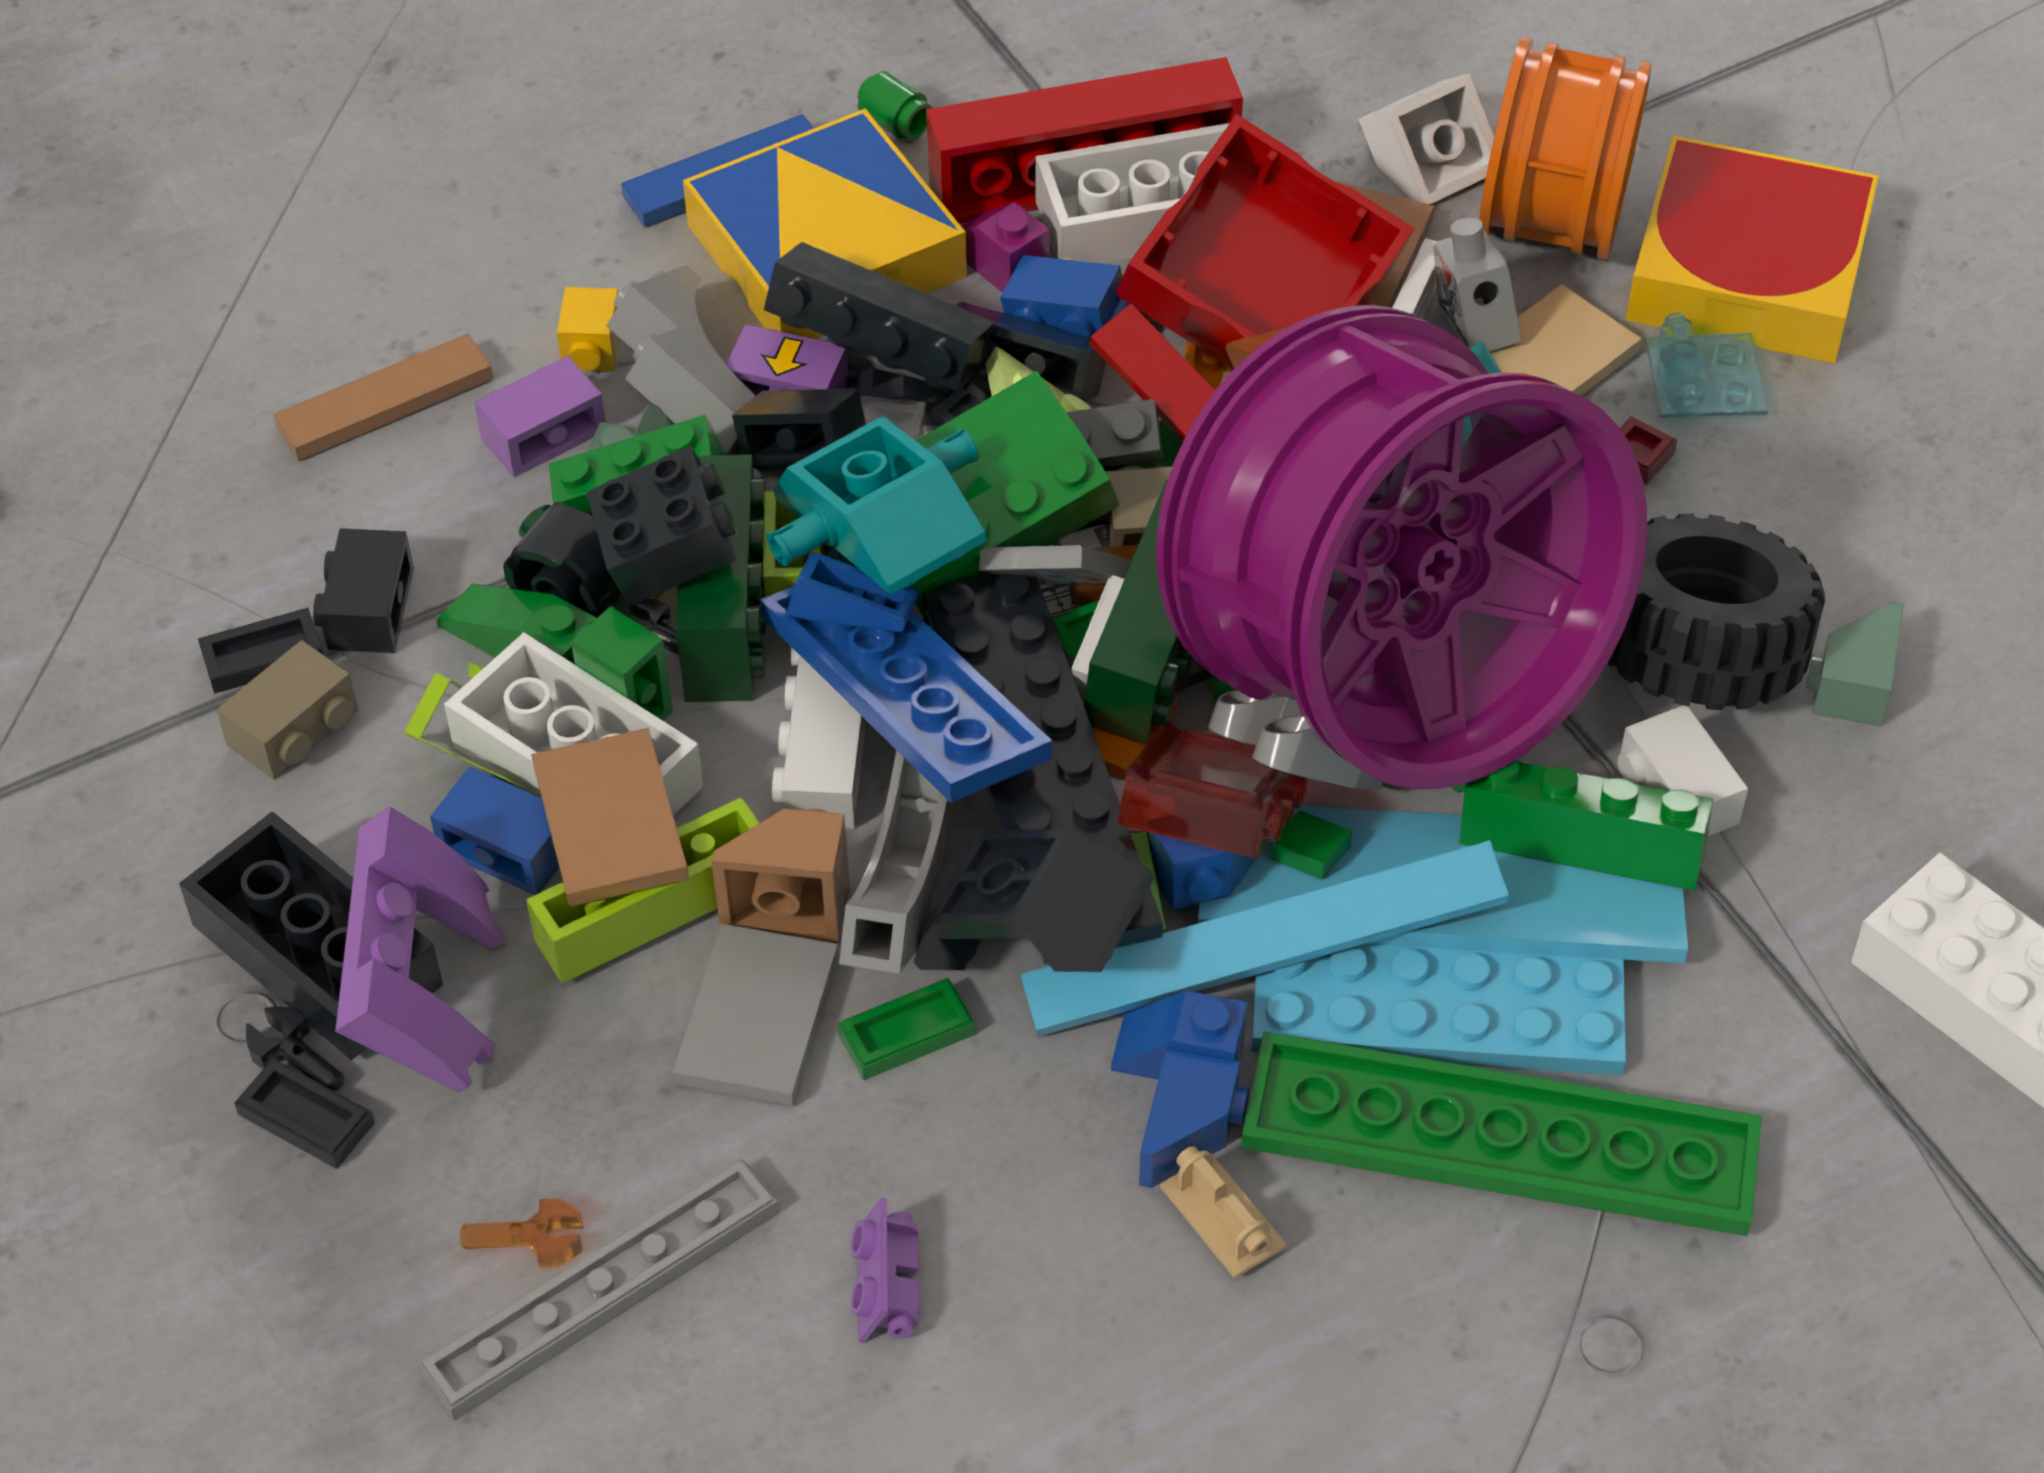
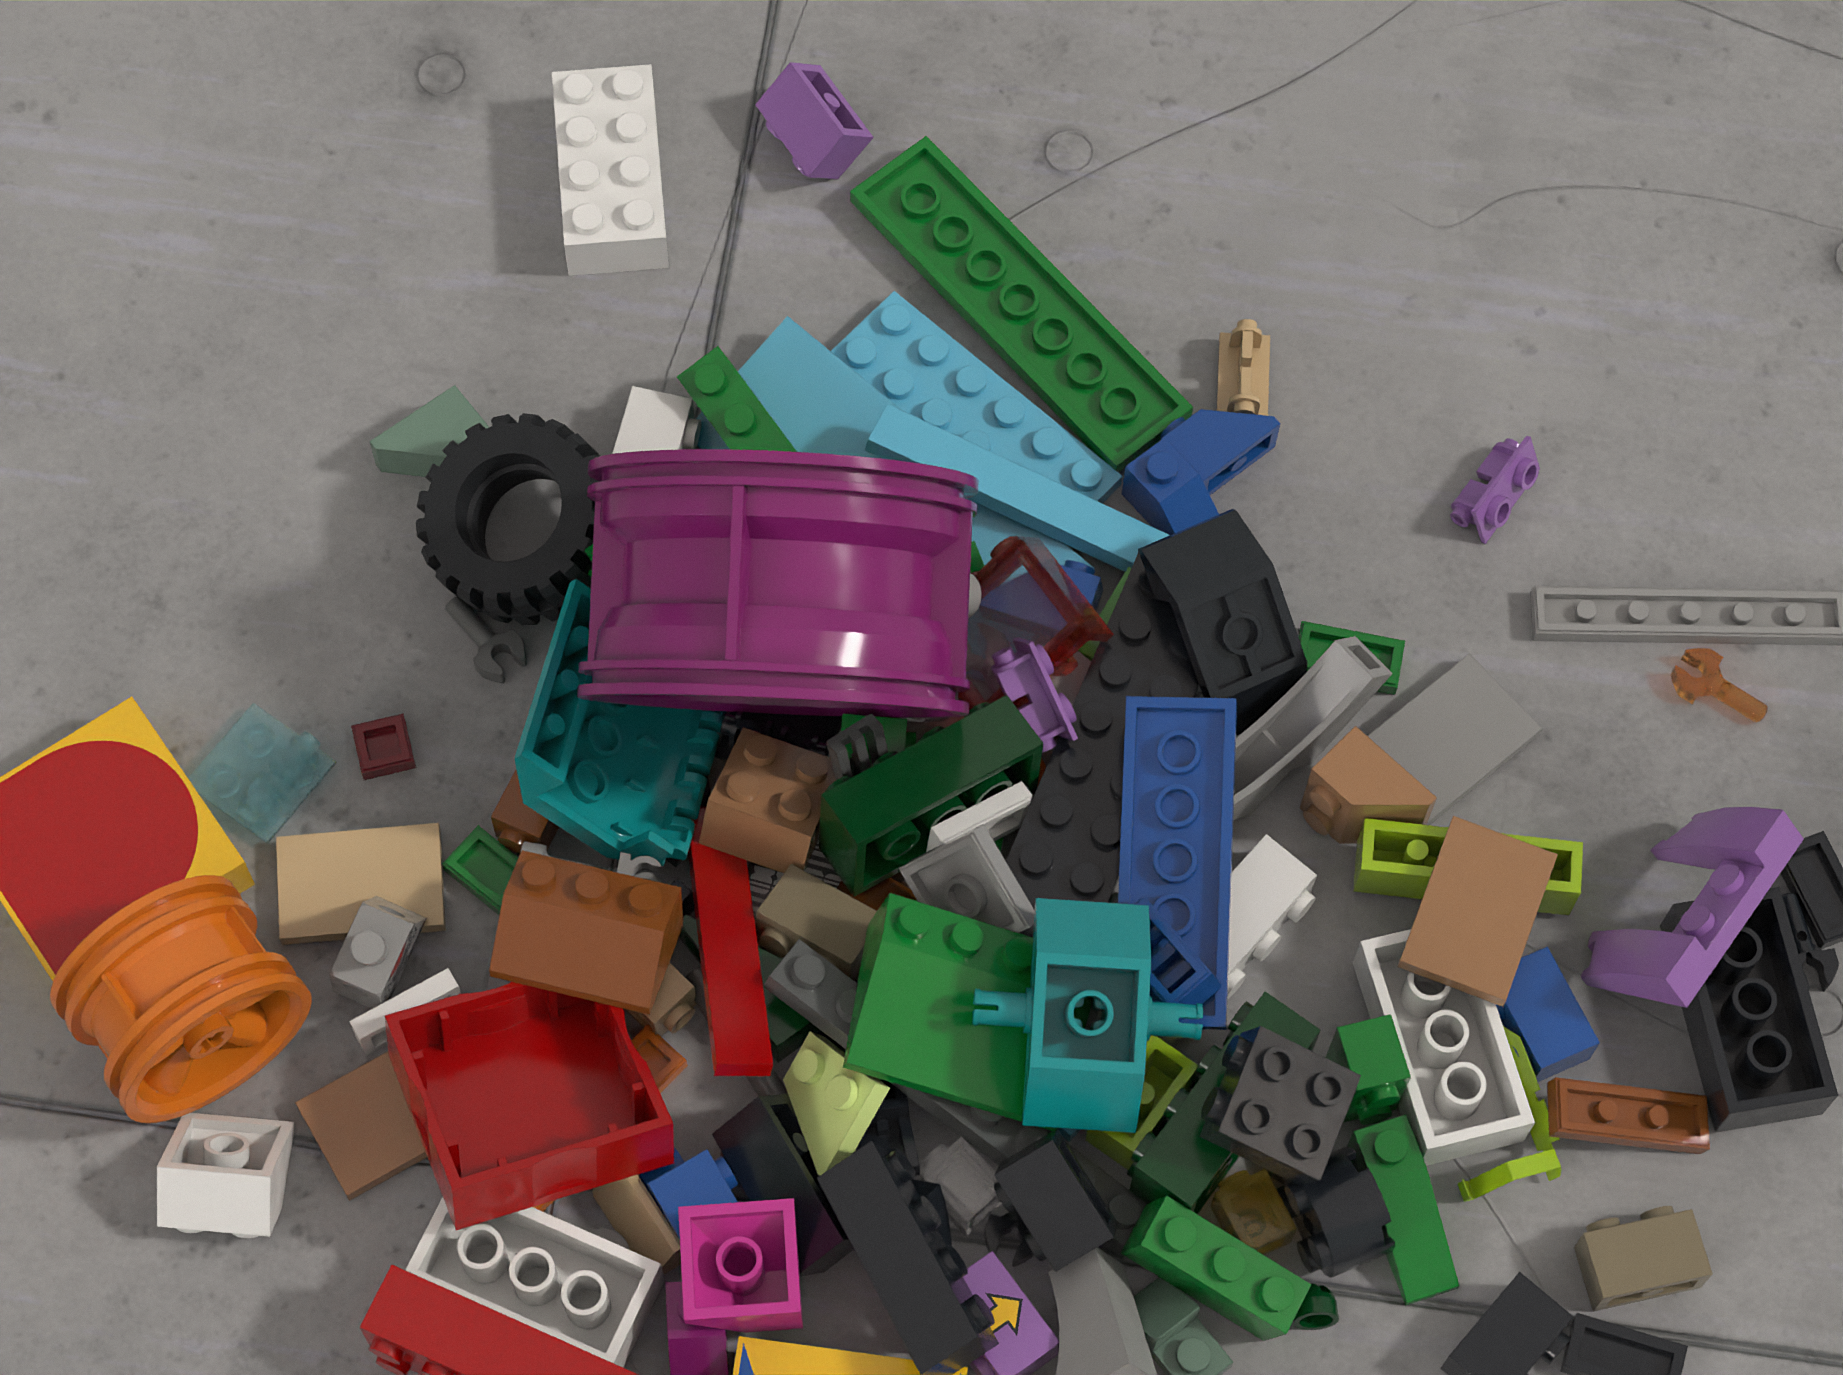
camera: 145 degrees left, 15 degrees up
(390, 779) = (1628, 1115): none -> dark orange tile
(991, 242) = (741, 1266): none -> dark pink slope
(1137, 718) = (1028, 675): none -> medium lavender hinge
(1865, 1152) = (813, 121): none -> medium lavender brick

